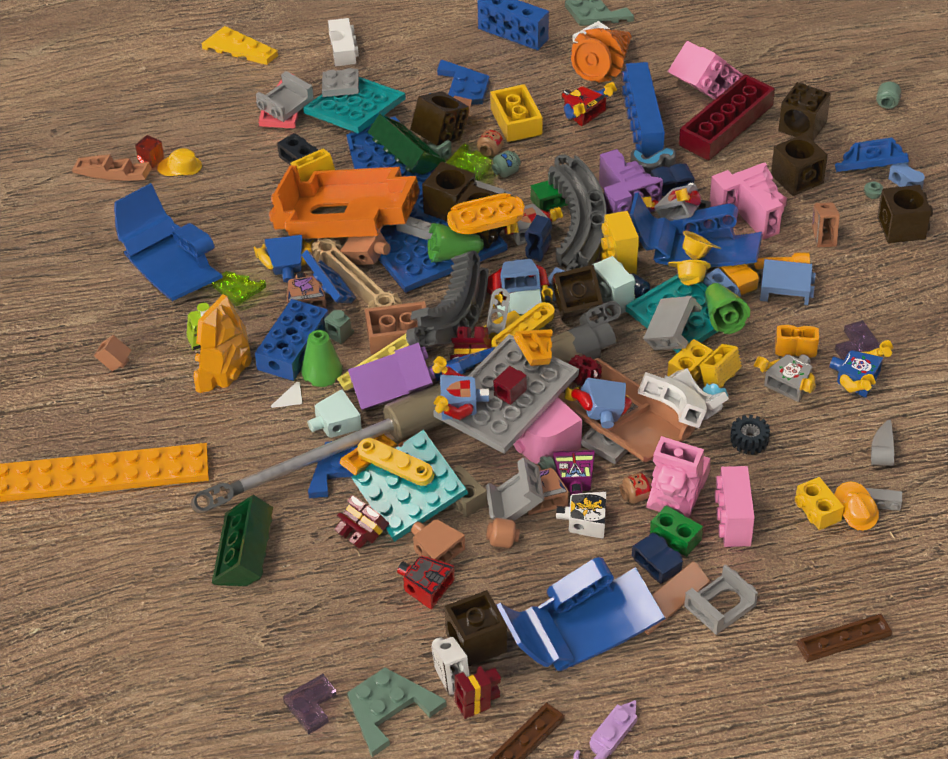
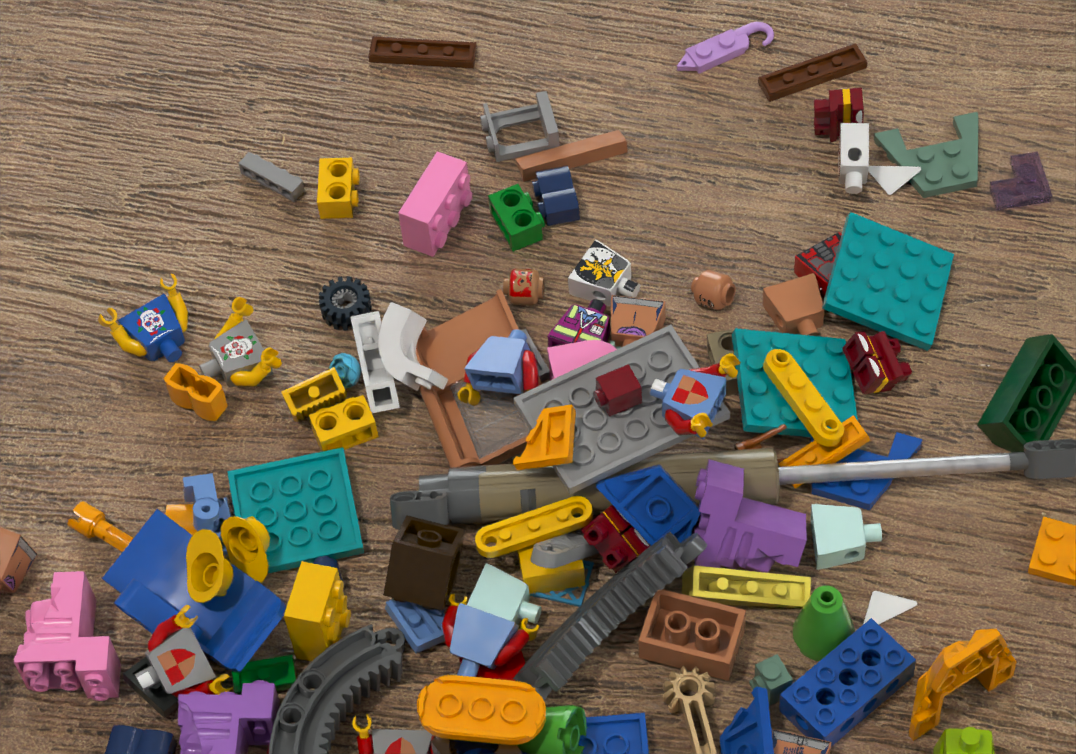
camera: 150 degrees left, 10 degrees up
(378, 578) = (888, 281): none -> teal plate
(415, 673) = (892, 177): none -> white sticker
(477, 627) = (810, 170): dark brown brick -> none
(517, 494) = (669, 305): light grey panel -> none
(538, 238) = (402, 702): dark blue brick -> none
(584, 616) = (686, 155): blue beam -> none
(587, 368) = (493, 437): dark red gear -> none
(615, 283) = (363, 569): light aqua brick -> none
(669, 321) = (331, 467): light grey panel -> none
(677, 476) = (479, 249): bright pink brick -> none
(726, 309) = (250, 462): bright green cone -> none
(734, 277) = (202, 492): none -> medium blue leg
(787, 279) = (130, 492): medium blue panel -> none
(859, 507) = (298, 166): light orange piece -> none
(860, 339) = (112, 374): clear purple plate -> none
(883, 446) = (207, 228): light grey piece -> none

